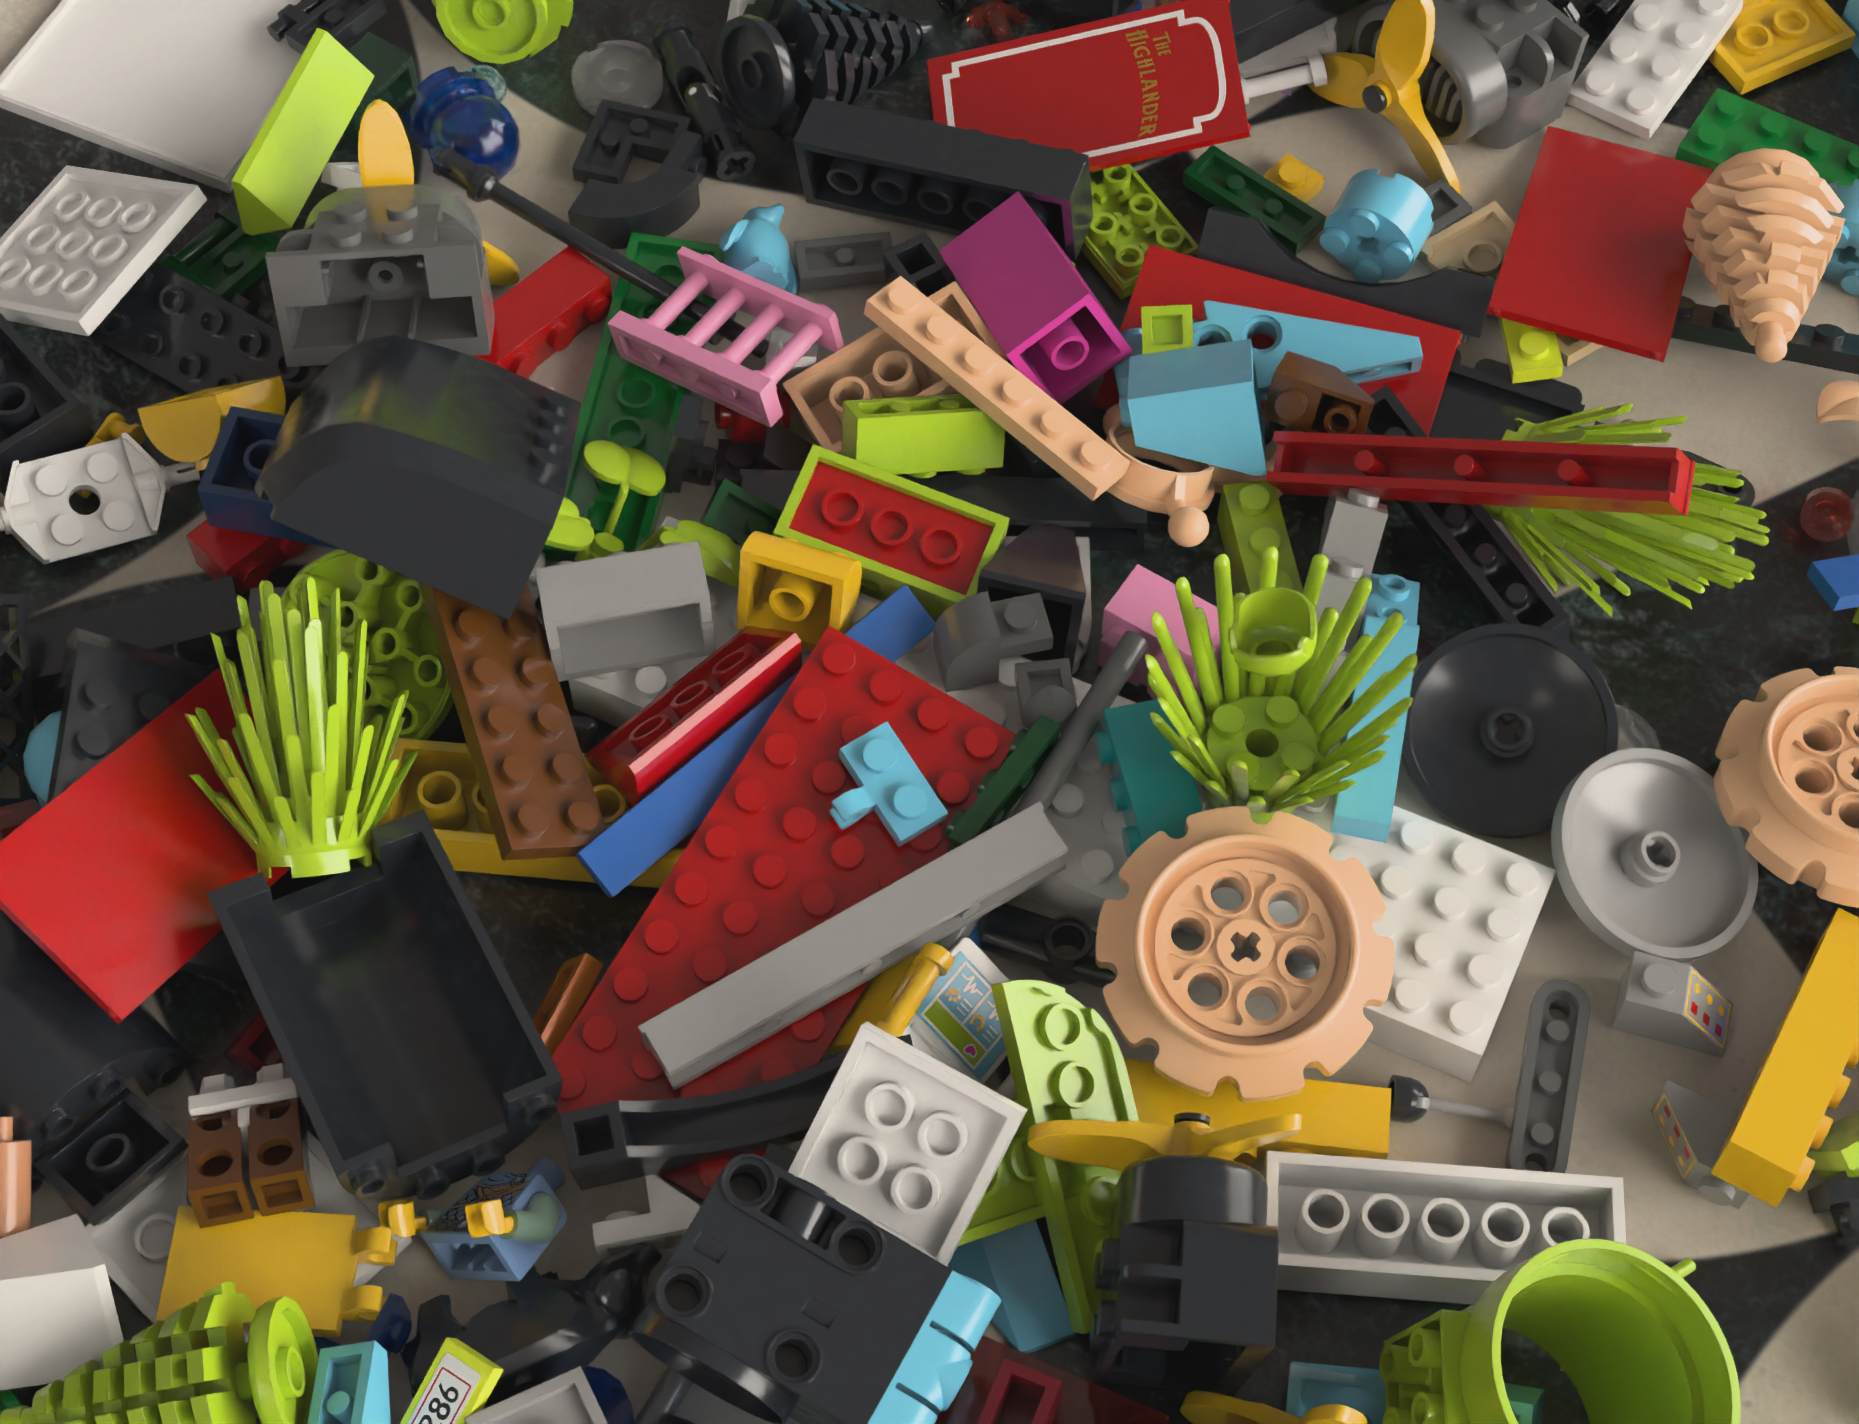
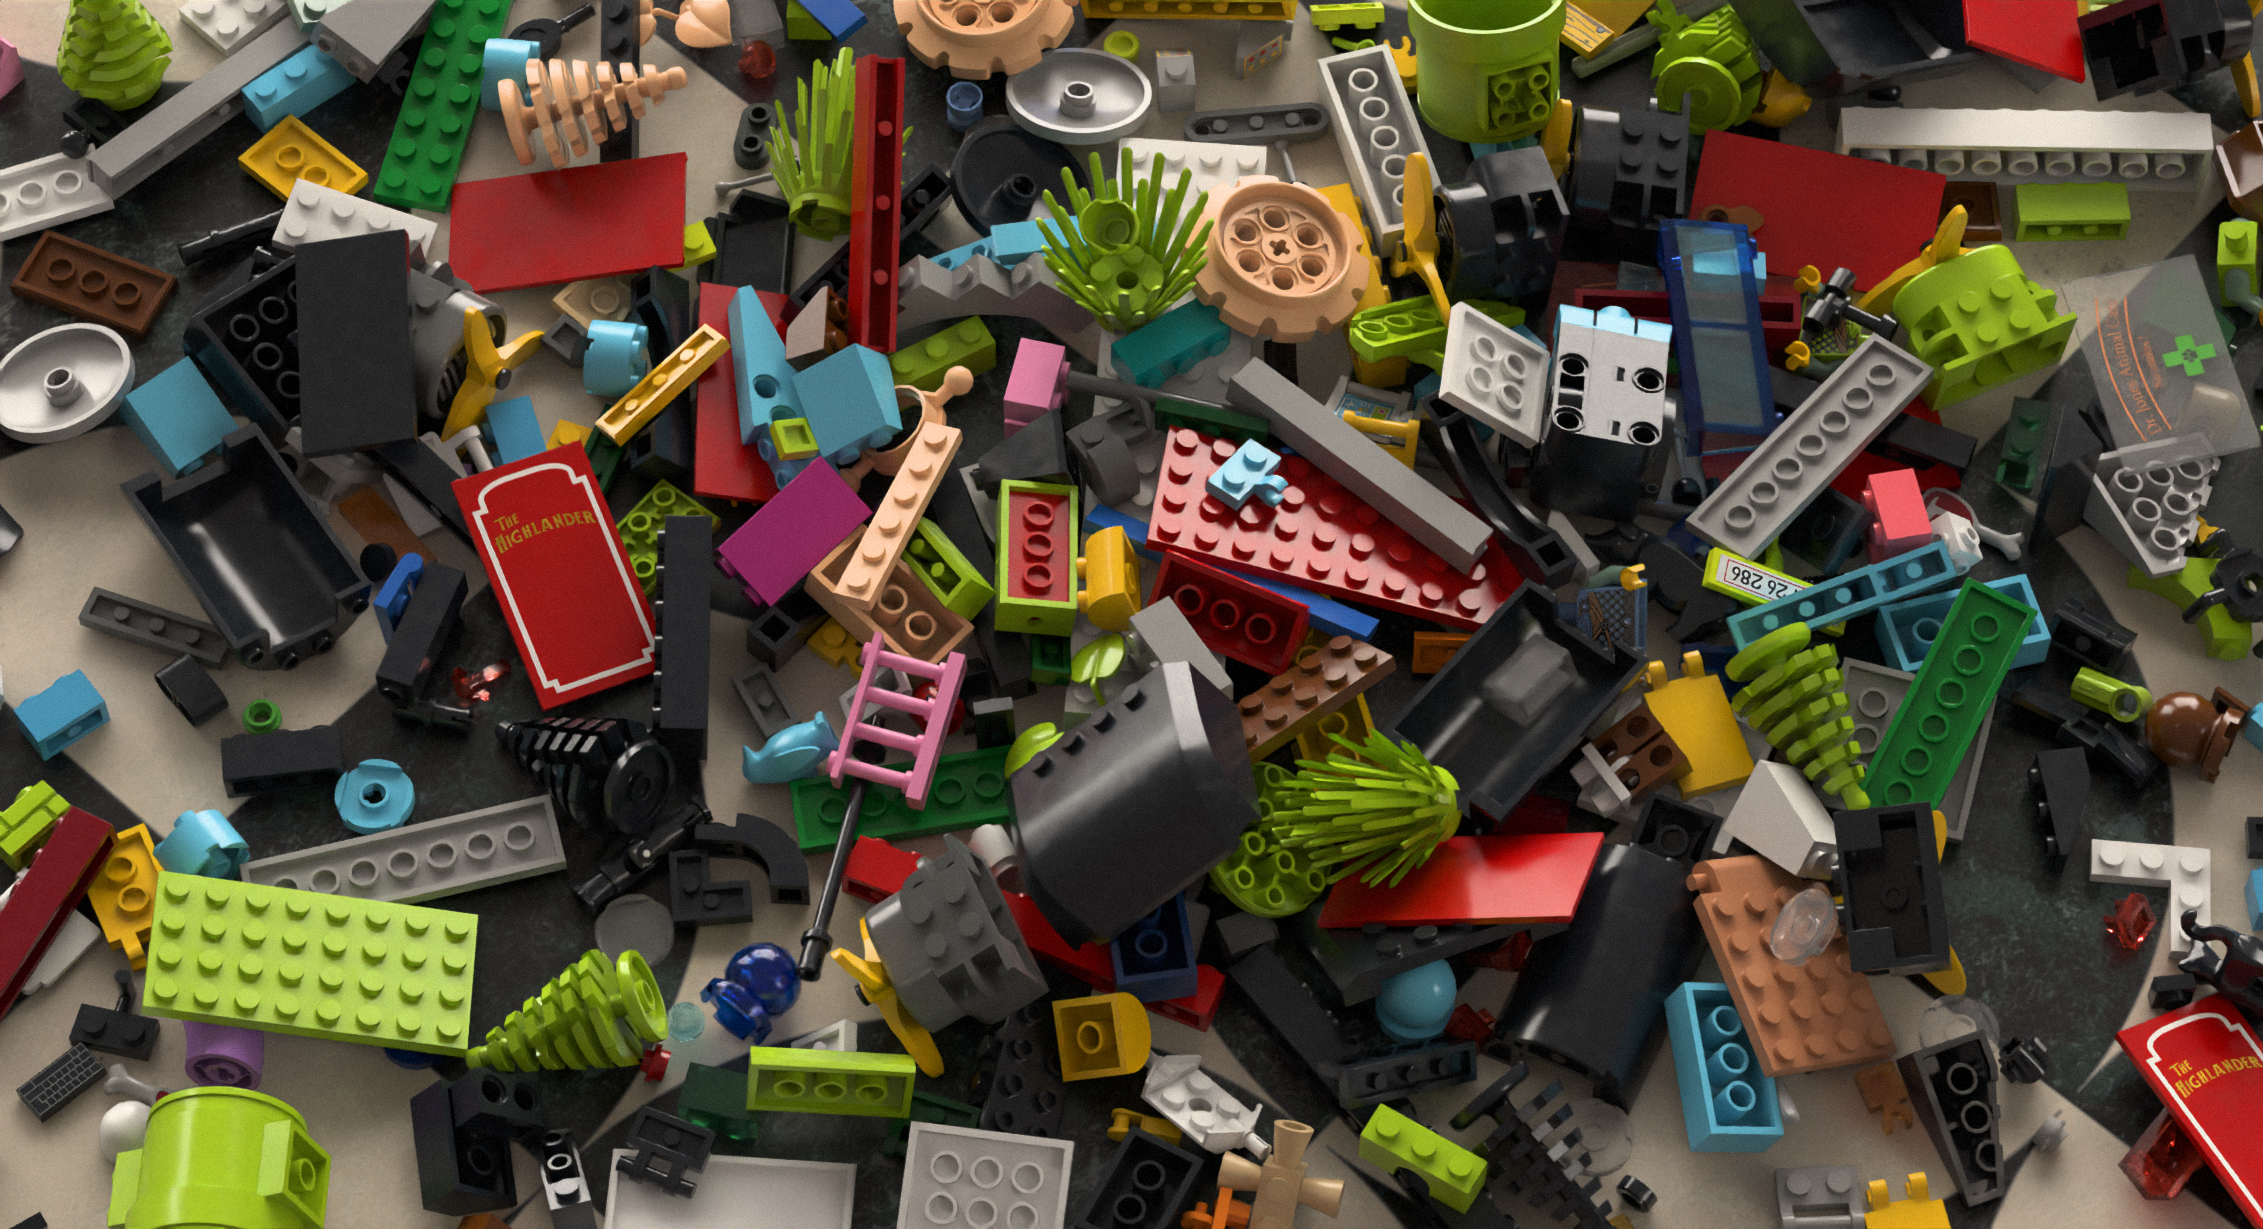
camera: 110 degrees left, 0 degrees up
(432, 1053) = (1530, 679): none -> clear brick
(440, 48) = (655, 1063): none -> red plate
(1307, 125) = (512, 430): none -> dark azure brick
(1316, 252) = (662, 385): none -> yellow tile
(1683, 721) = (964, 105): none -> medium blue wheel
(1731, 1281) = (1361, 14): none -> neon yellow plate
(1745, 963) = (1123, 44): none -> neon yellow tile

